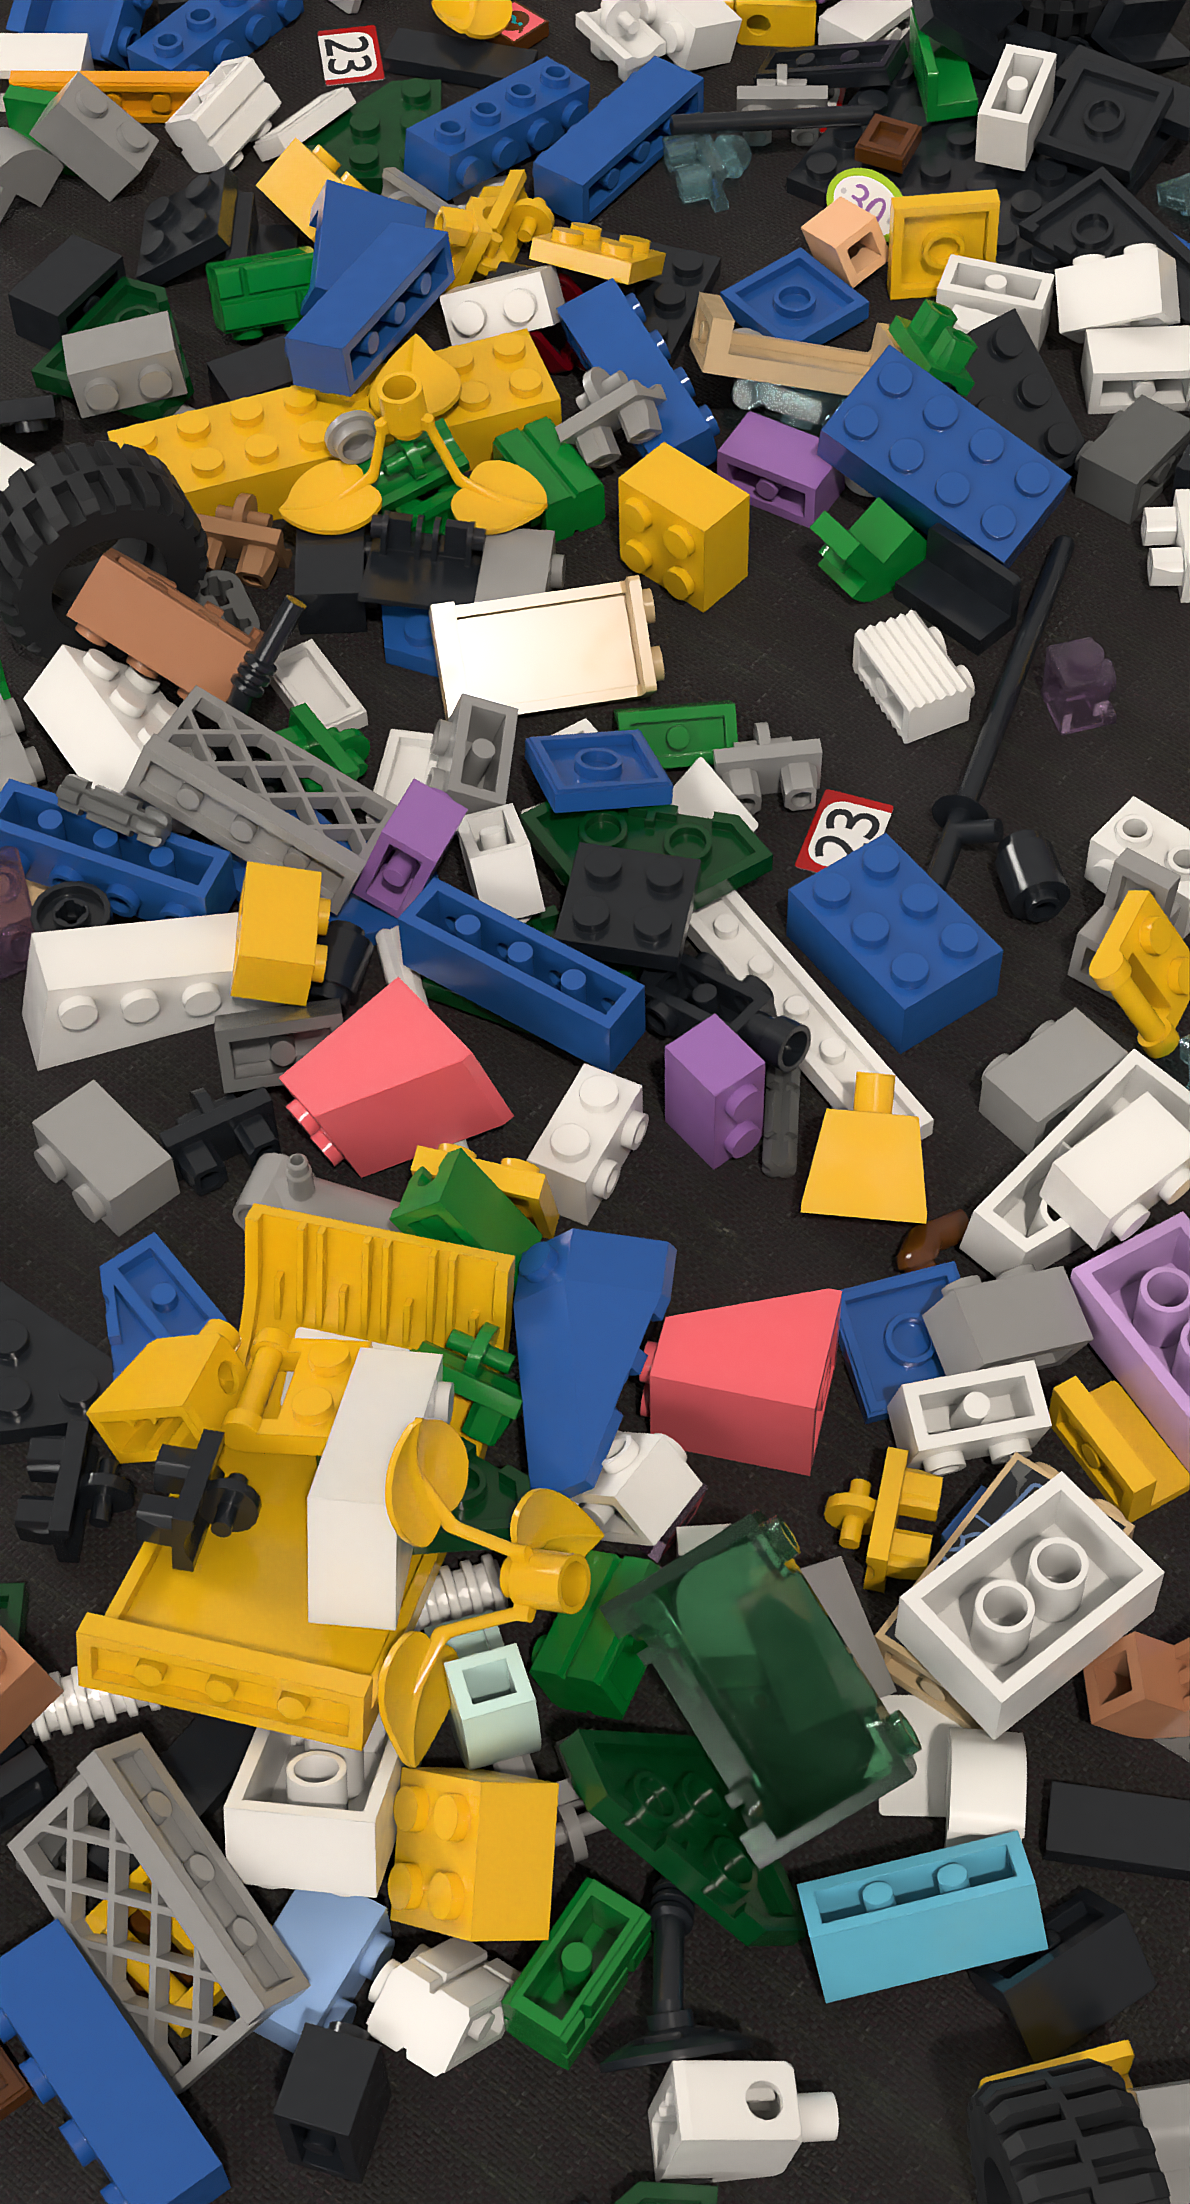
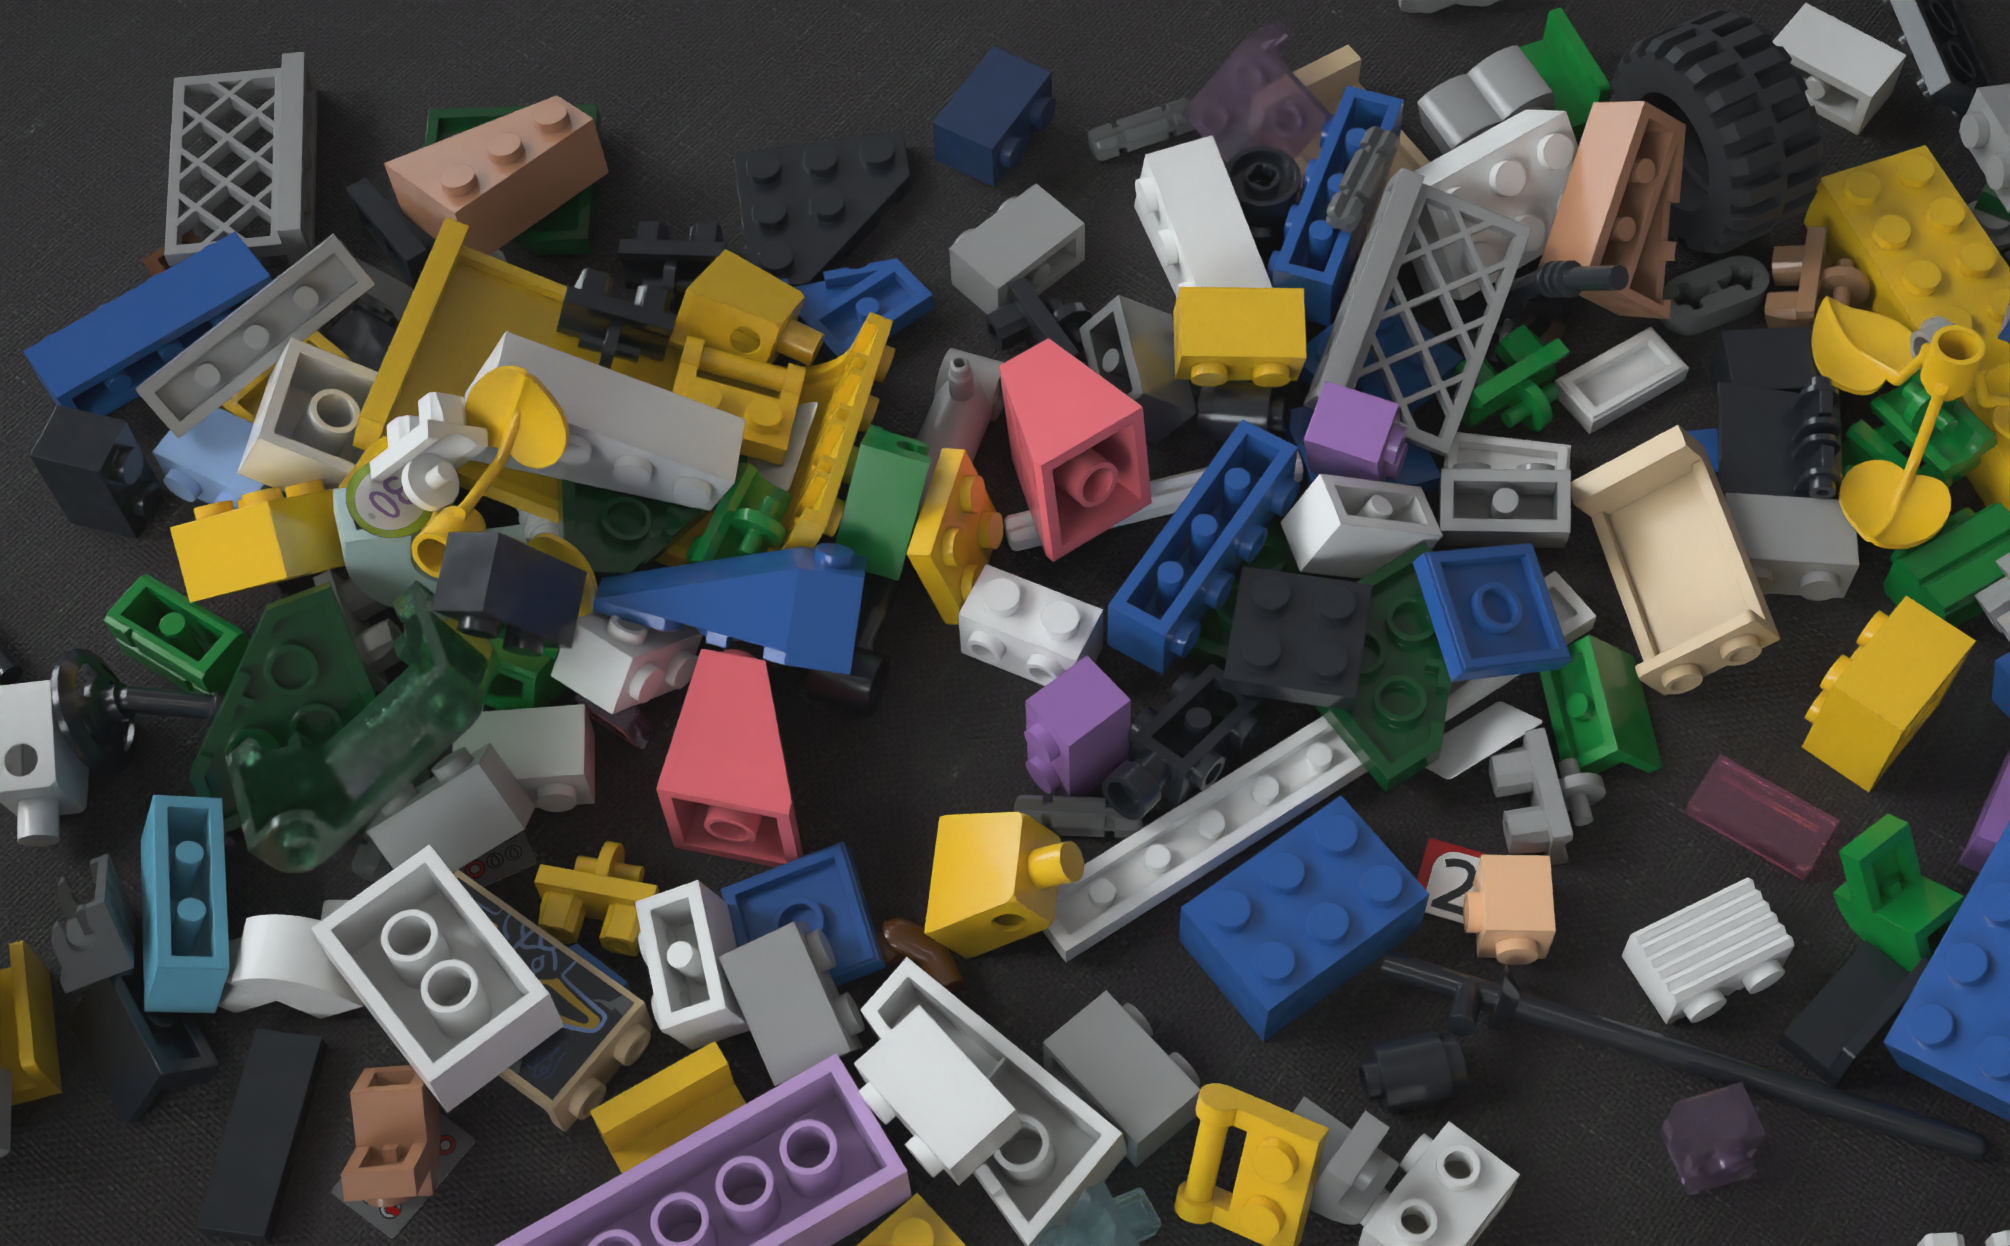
camera: 90 degrees right, 5 degrees up
(439, 1565) = (430, 450): none -> white hips
(441, 2004) = (136, 526): white brick -> none
(474, 1660) = (383, 506): none -> sticker
(612, 1523) = (509, 592): none -> black brick
(777, 638) = (1762, 816): none -> clear pink tile
(879, 795) = (1511, 908): none -> light nougat brick
(956, 2011) = (98, 931): none -> dark grey hinge

